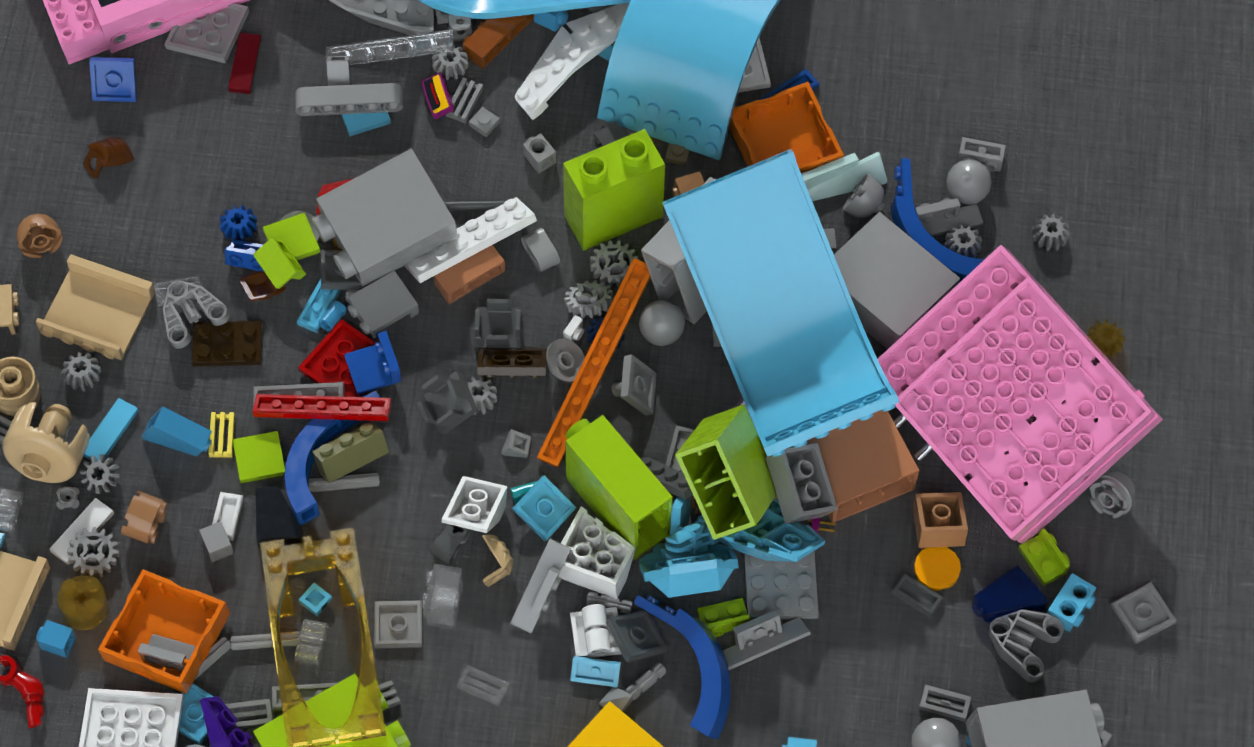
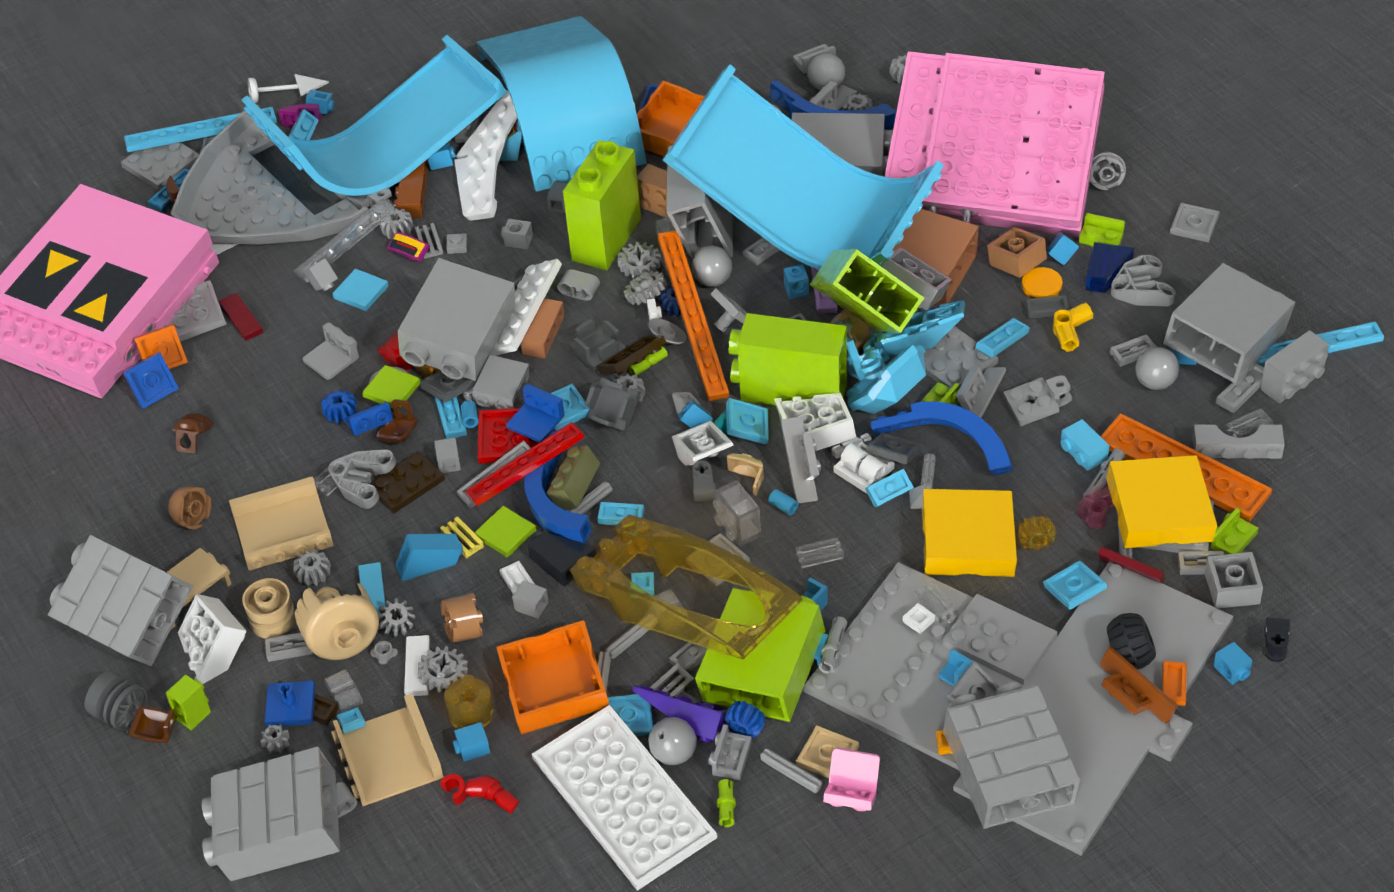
camera: 35 degrees left, 15 degrees down
(149, 51) = (164, 341): none -> orange tile
(166, 652) = (570, 687): light grey panel -> none
(276, 343) = (447, 455): none -> light grey panel
(278, 163) = (333, 354): none -> light grey bracket
(278, 262) = (400, 400): lime panel -> none
(348, 99) = (346, 284): light grey beam -> none
(360, 516) = (613, 513): none -> medium azure plate
(417, 366) = (573, 406): none -> medium azure tile
(431, 728) = (817, 592): none -> dark azure panel
(499, 612) = (783, 502): none -> dark azure piece
(508, 467) = (694, 414): none -> dark azure panel
(525, 379) = (650, 359): none -> lime piece
(722, 394) = (796, 281): none -> dark azure brick
(820, 688) = (1044, 394): none -> light grey plate
(841, 598) = (1002, 337): none -> medium azure tile
(923, 628) = (1065, 324): none -> yellow piece
(990, 545) = (1062, 248): none -> dark azure panel
(1068, 601) = (1147, 240): medium azure brick -> none

